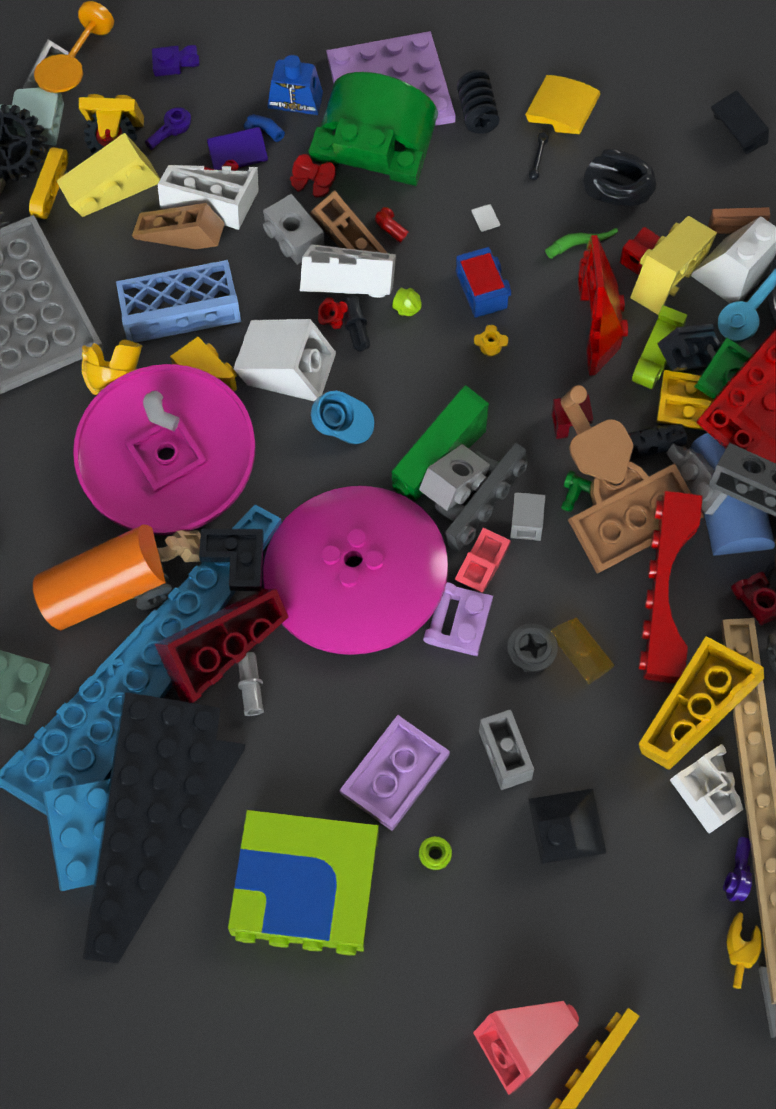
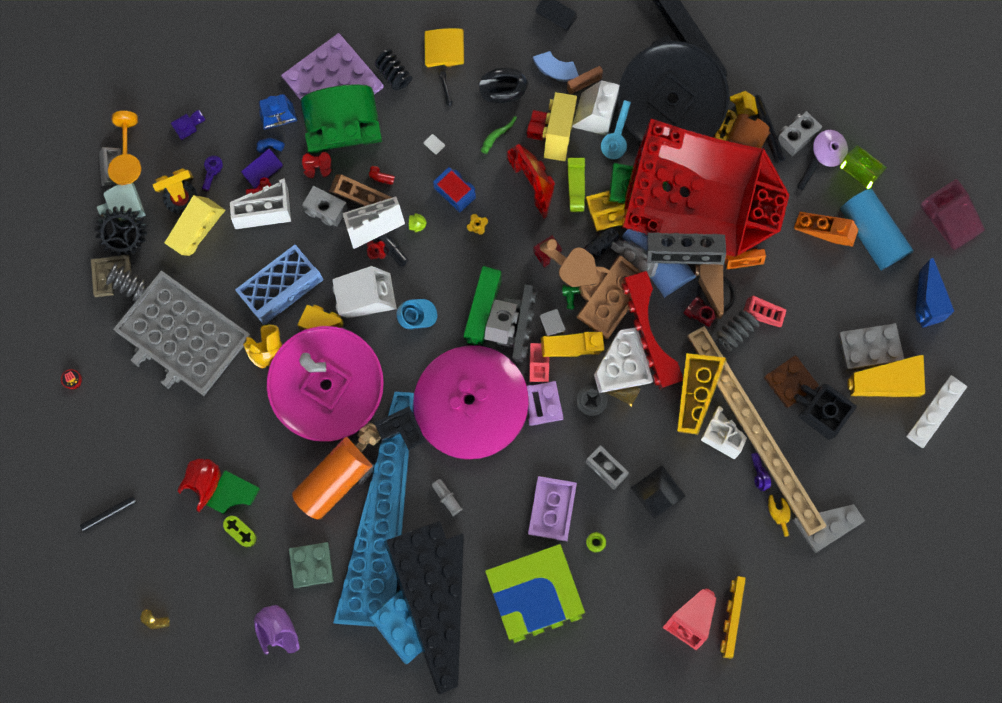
camera: 25 degrees left, 10 degrees up
(47, 186) = (157, 244): yellow beam -> none
(182, 226) = (255, 237): medium nougat slope -> none
(214, 644) = (418, 484): dark red wedge -> none
(543, 556) = (572, 345): none -> yellow slope
(605, 616) = (623, 363): none -> white plate
(688, 345) = (595, 178): black hinge -> none
(702, 189) = (554, 68): none -> light blue tile

